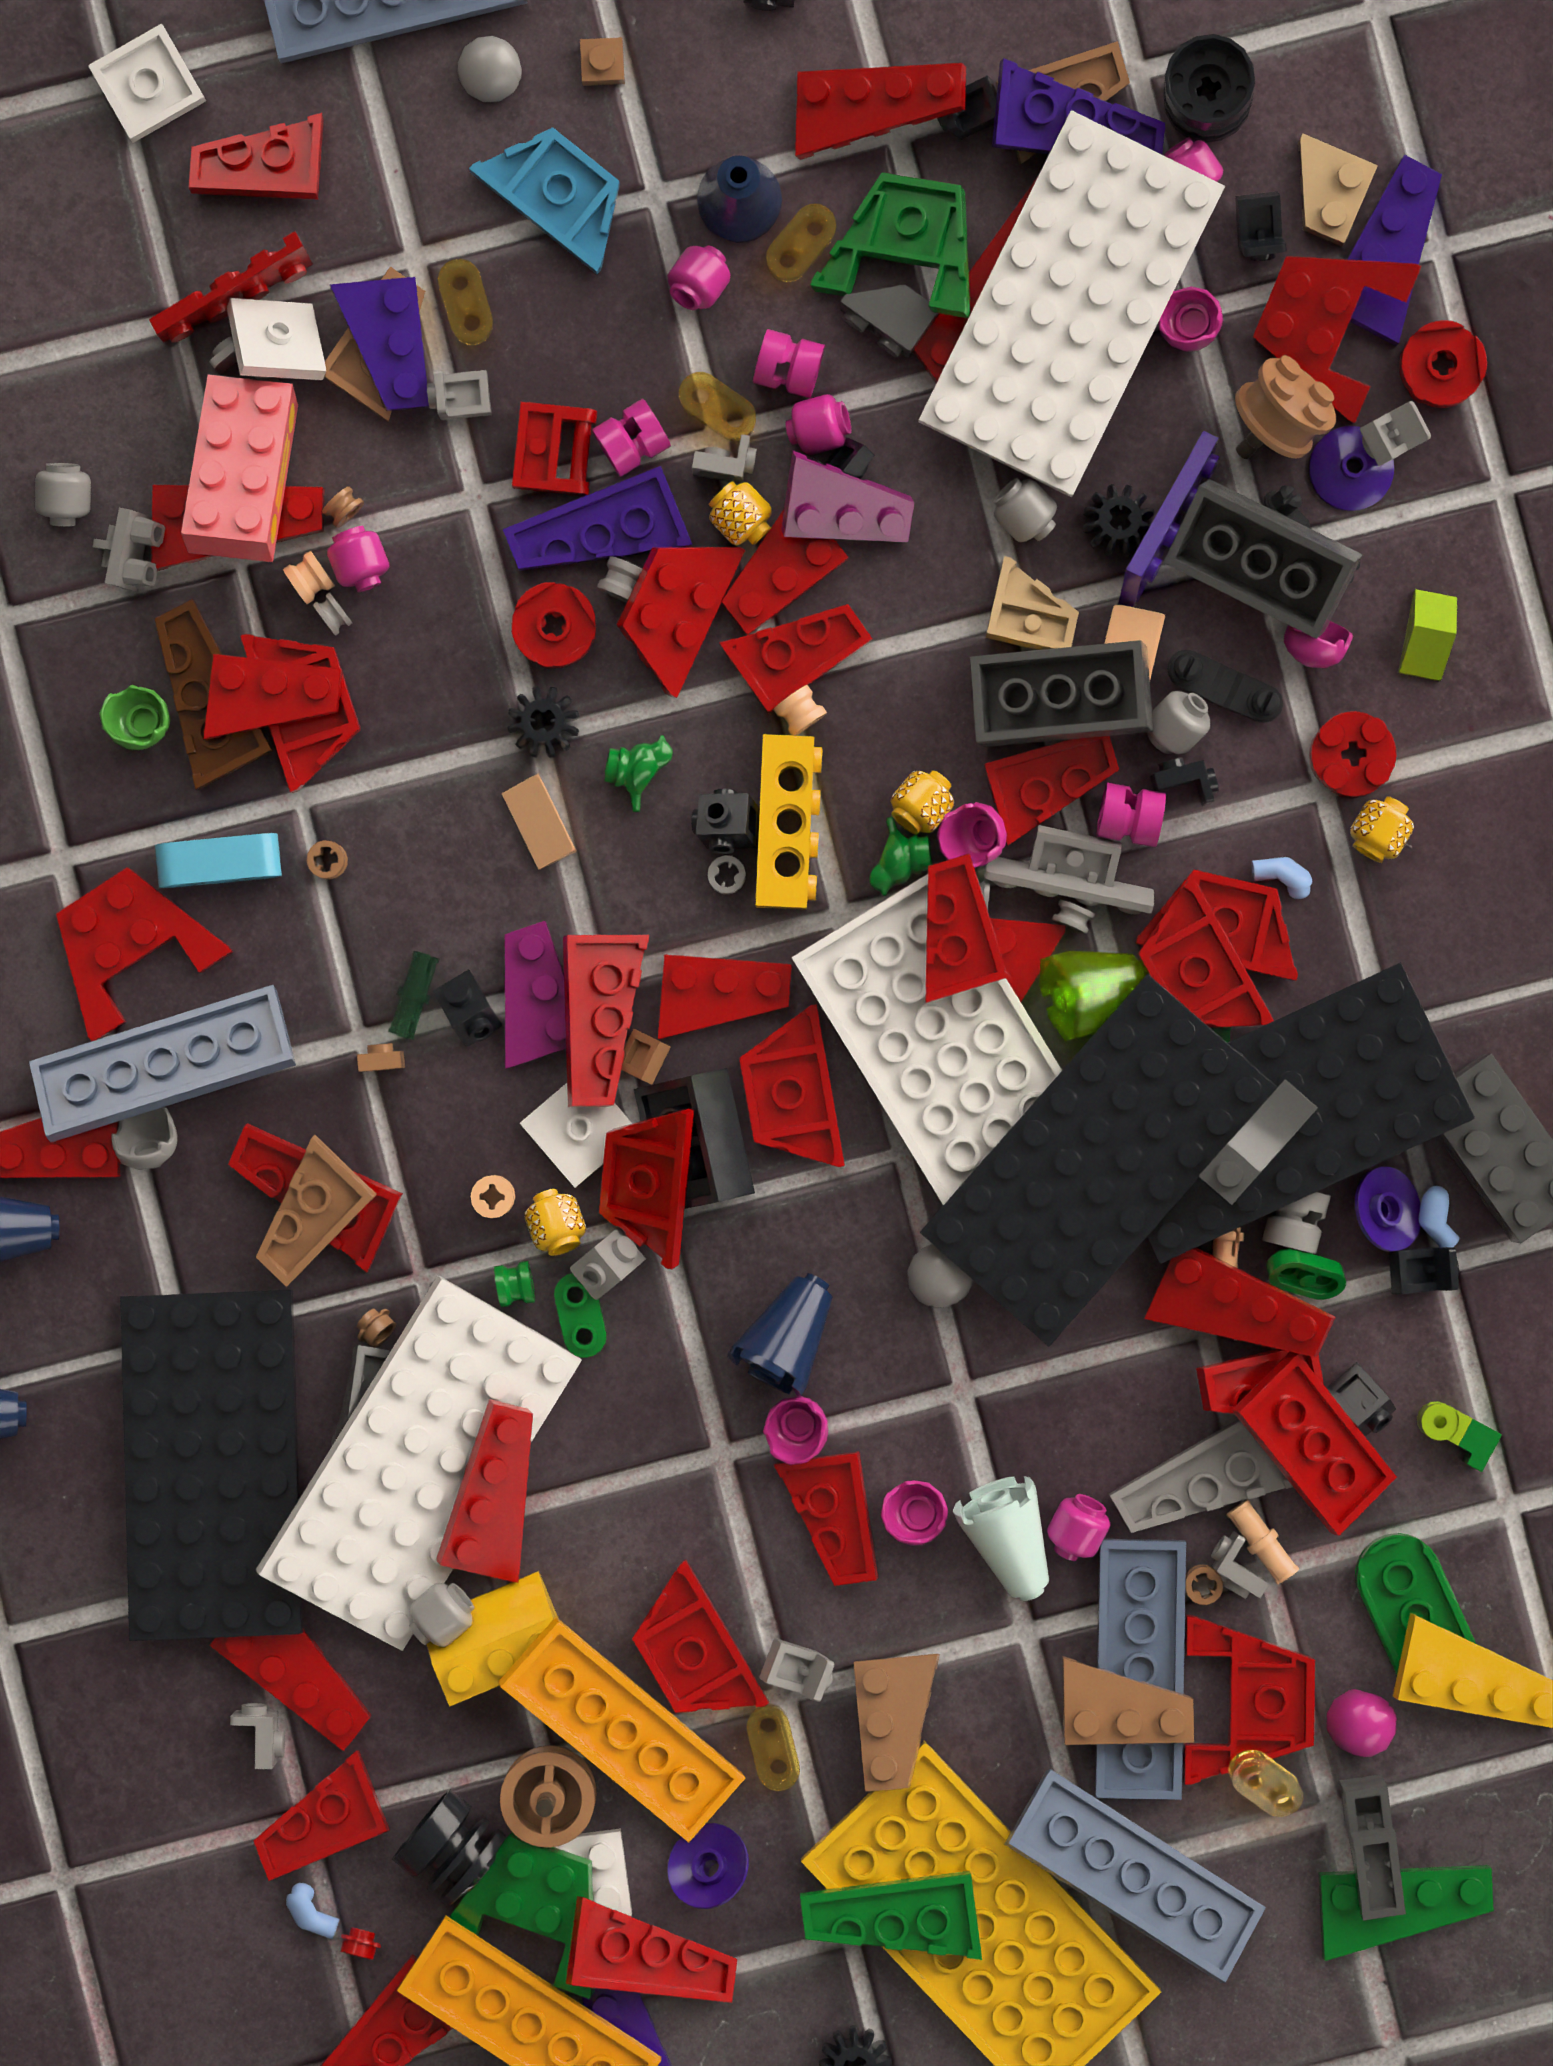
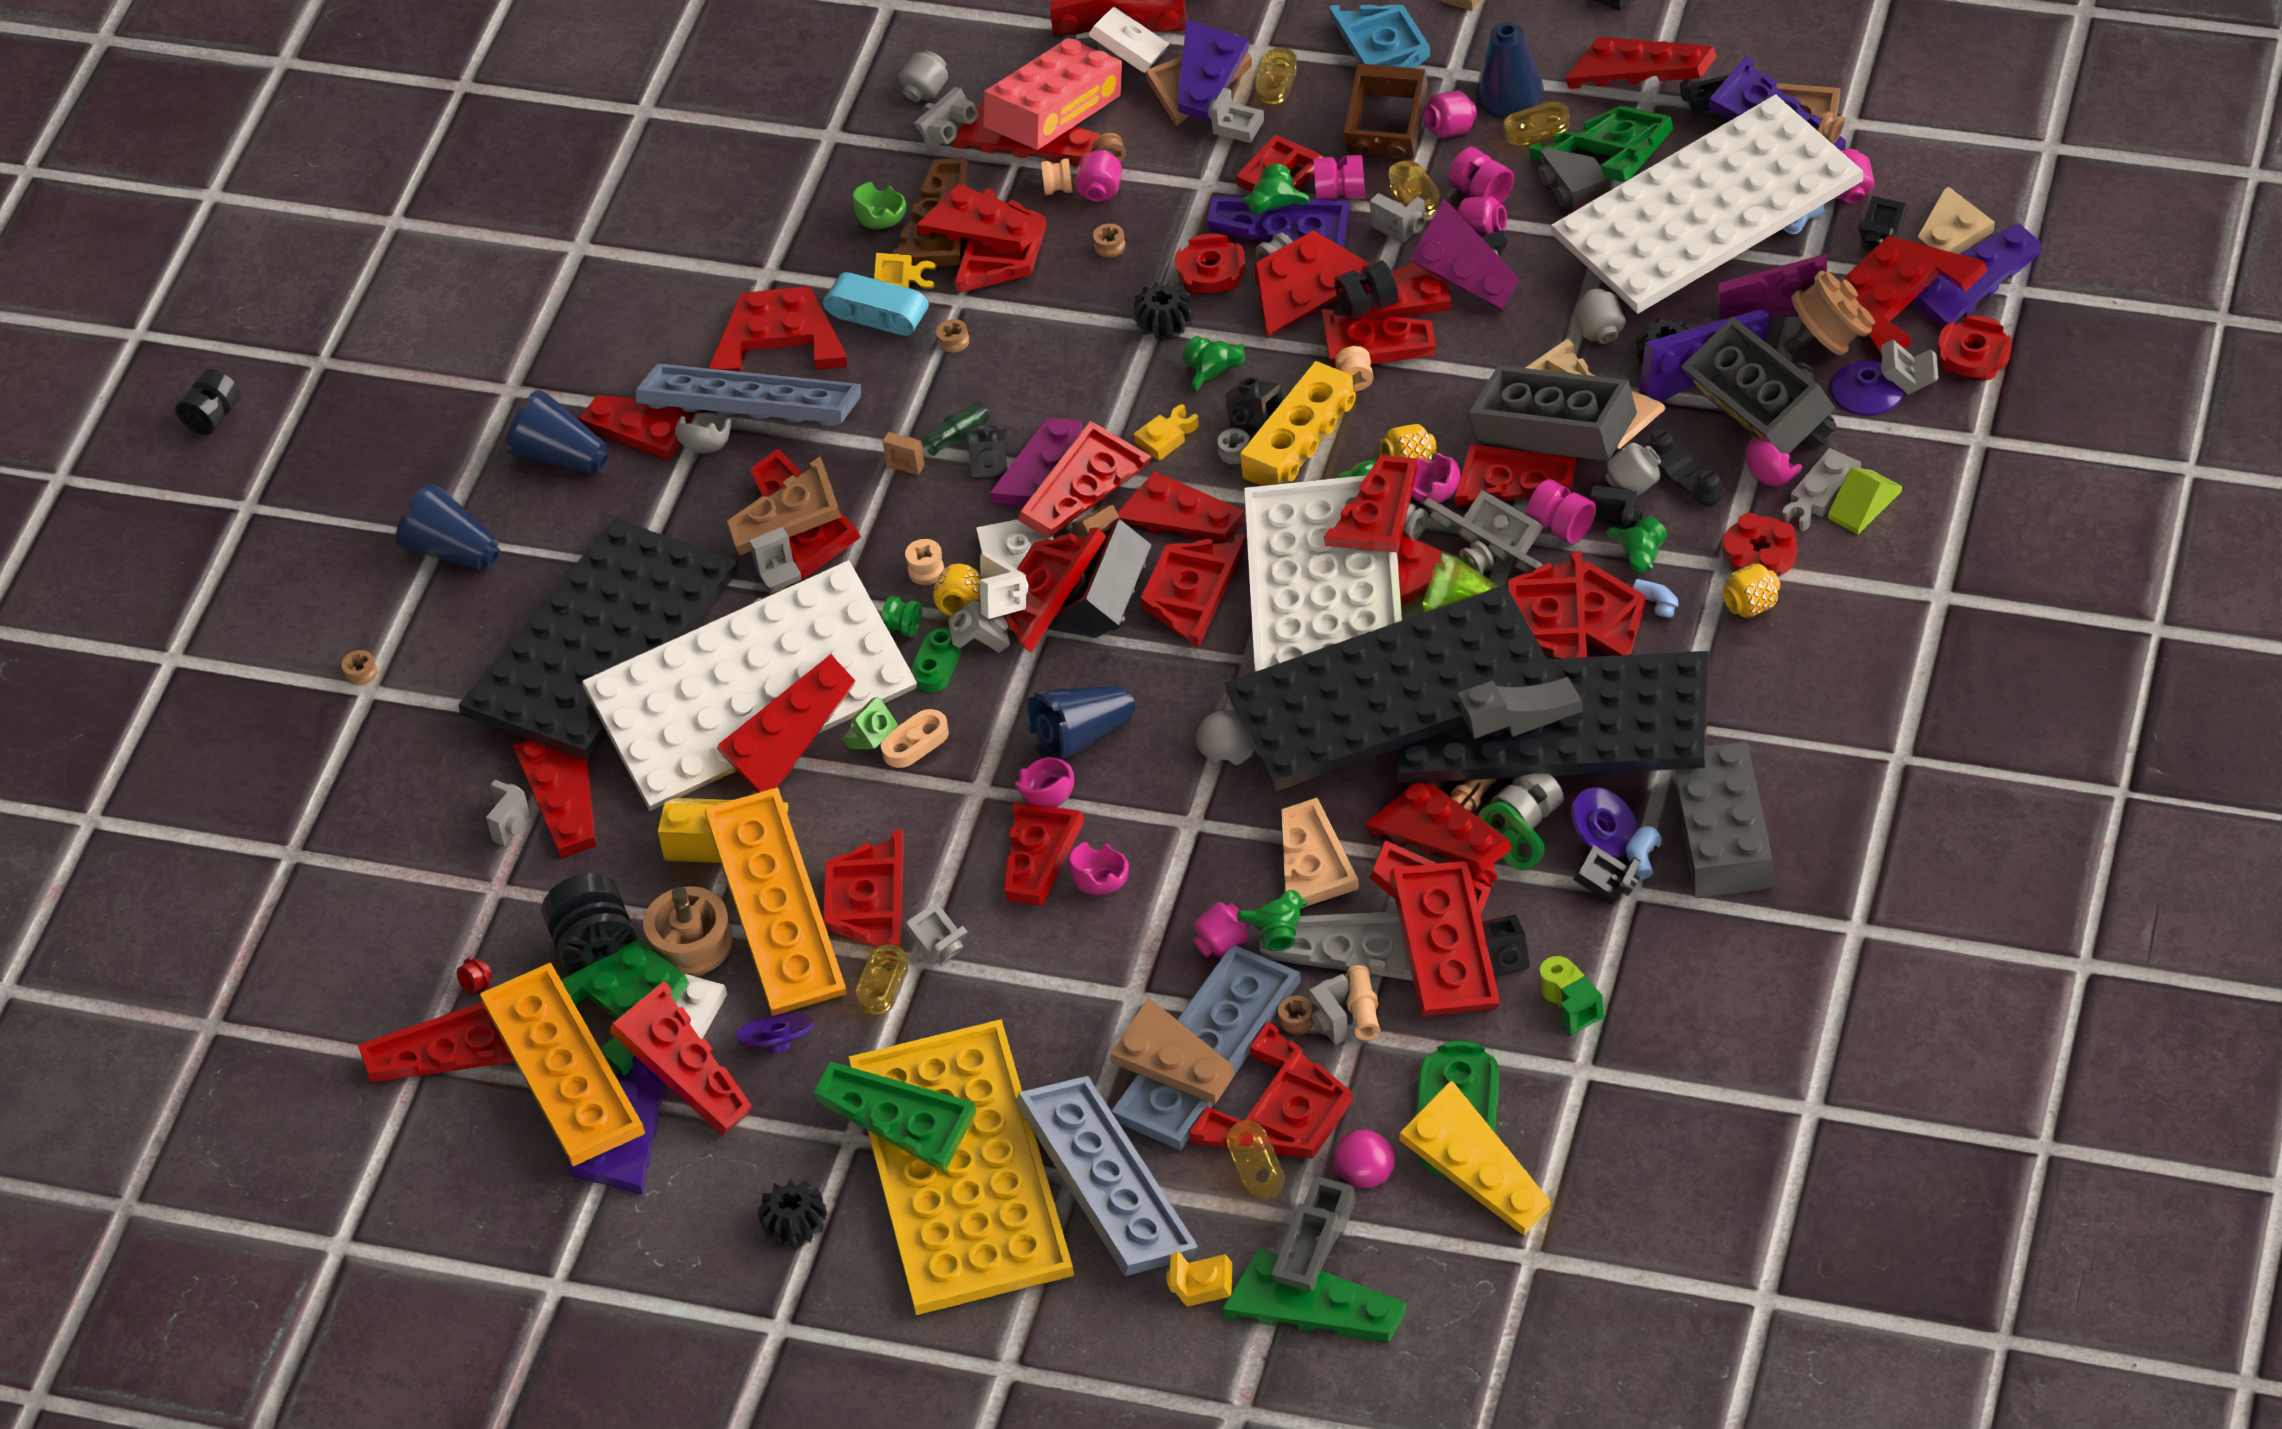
camera: 40 degrees right, 40 degrees down
(214, 804) = (899, 270): none -> yellow plate
(305, 1914) = (449, 940): light blue arm -> none
(325, 1822) = (504, 890): red wing -> none
(332, 613) = (1058, 202): light grey bush -> none
(338, 1279) = (774, 560): none -> light grey bracket
(431, 636) = (1109, 232): none -> medium nougat bush
(441, 1614) = (695, 779): light grey head -> none
(539, 822) = (1120, 367): light nougat slope -> none
(574, 1450) = (870, 726): none -> bright green bracket
(577, 505) = (1274, 191): none -> green animal
(608, 273) = (1385, 82): none -> reddish brown window
(623, 1432) = (910, 739): none -> light nougat plate
(625, 1230) = (1001, 587): none -> white bracket
(639, 893) = (1165, 435): none -> yellow plate
(740, 513) = (1388, 242): yellow head -> none
(766, 611) = (1370, 288): none -> black wheel
(891, 1716) = (986, 989): medium nougat wing -> none
(1008, 1534) = (1161, 904): light aqua cone -> none
(1116, 1386) = (1313, 855): none -> light nougat wing
(1140, 1505) = (1276, 920): none -> green animal
(1150, 126) = (1831, 127): none -> medium nougat bush
(1191, 319) = (1792, 249): dark pink hair -> none
(1200, 392) = (1769, 289): none -> magenta wing
(1222, 68) = (1890, 127): black wheel -> none
(1233, 816) = (1640, 542): none -> green animal
(1287, 1941) = (1200, 1280): none -> yellow bracket
(1375, 637) = (1819, 488): none -> light grey plate

